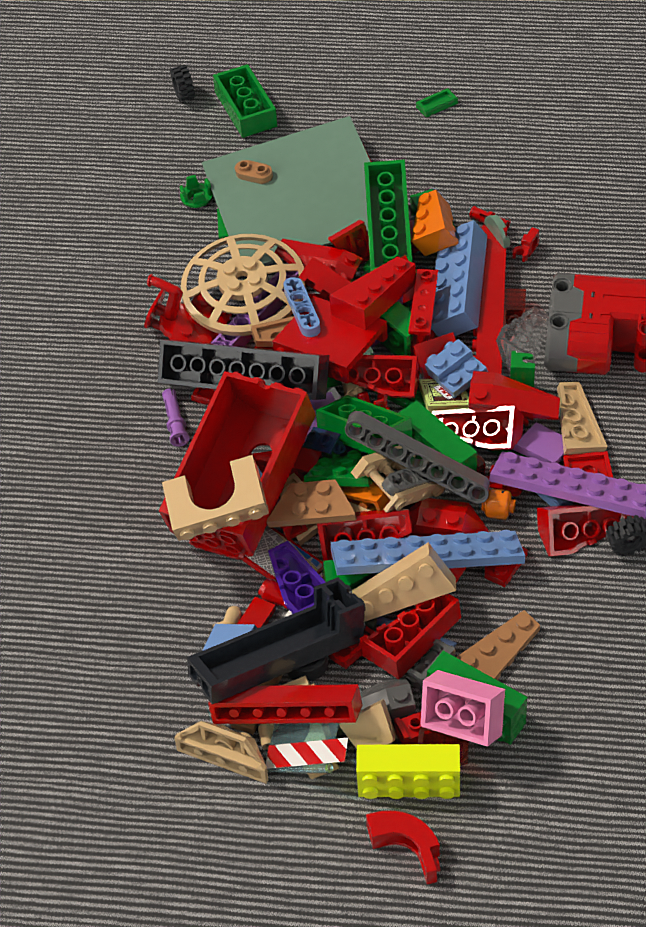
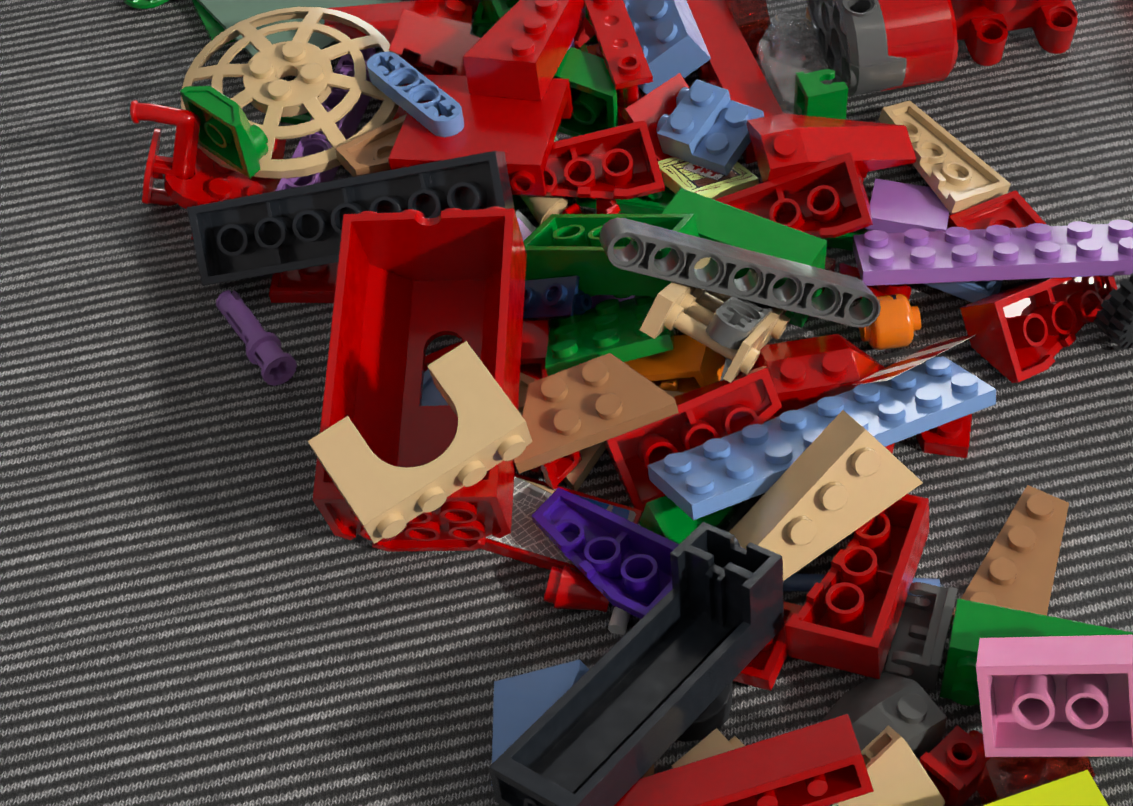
camera: 20 degrees left, 0 degrees up
(196, 301) = (226, 129): none -> green slope
(232, 616) = (514, 661): tan arm -> none
(258, 613) = (557, 637): red tile -> none
(497, 528) = (913, 360): none -> sticker

